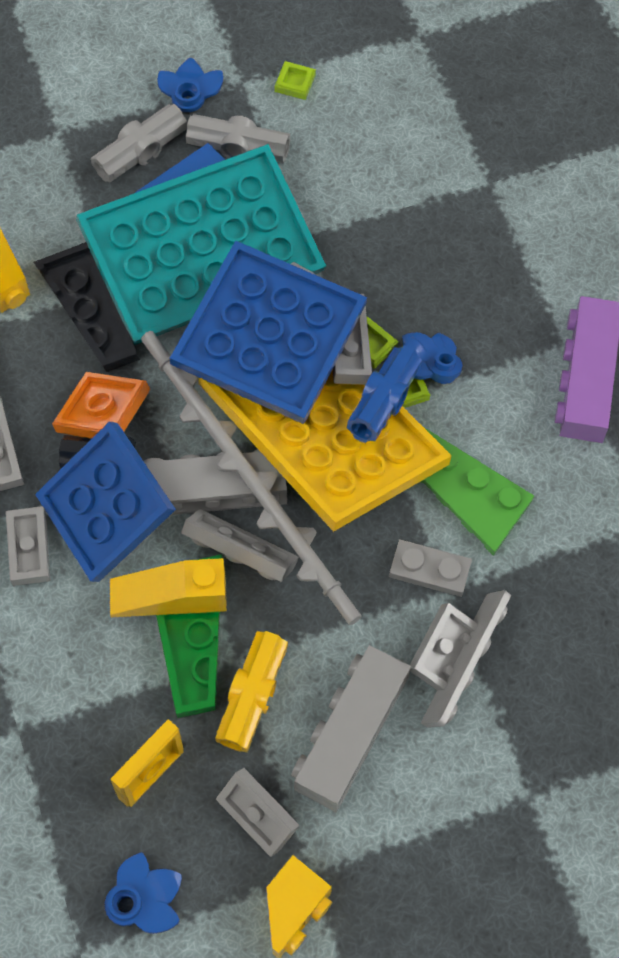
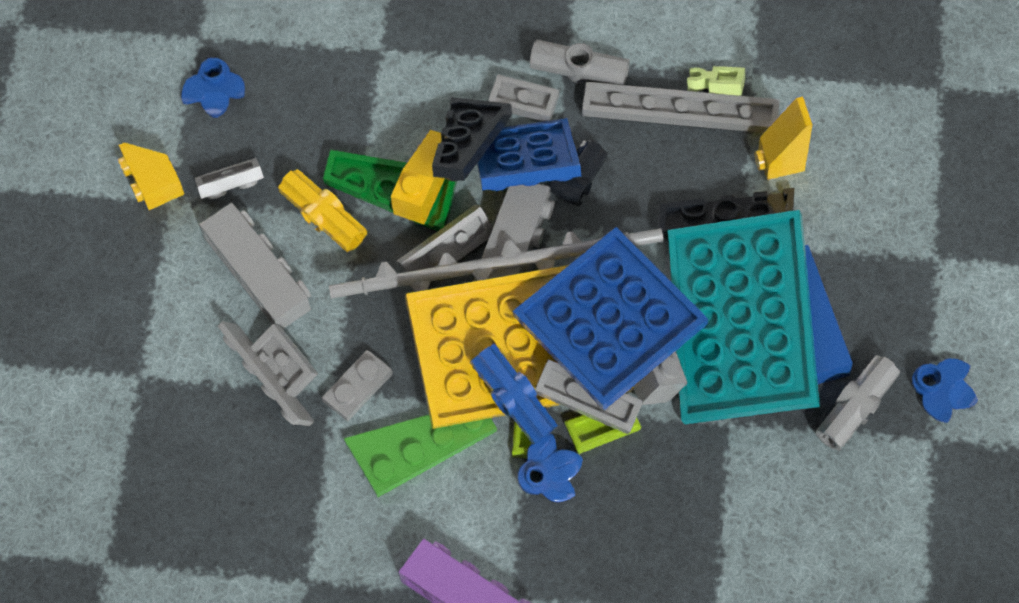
camera: 120 degrees right, 0 degrees up
(98, 401) = (619, 187): orange tile -> none
(107, 562) = (467, 136): none -> black wing
(139, 142) = (888, 315): light grey piece -> none
(148, 764) = (296, 110): yellow tile -> none
(295, 80) = (912, 486): lime tile -> none

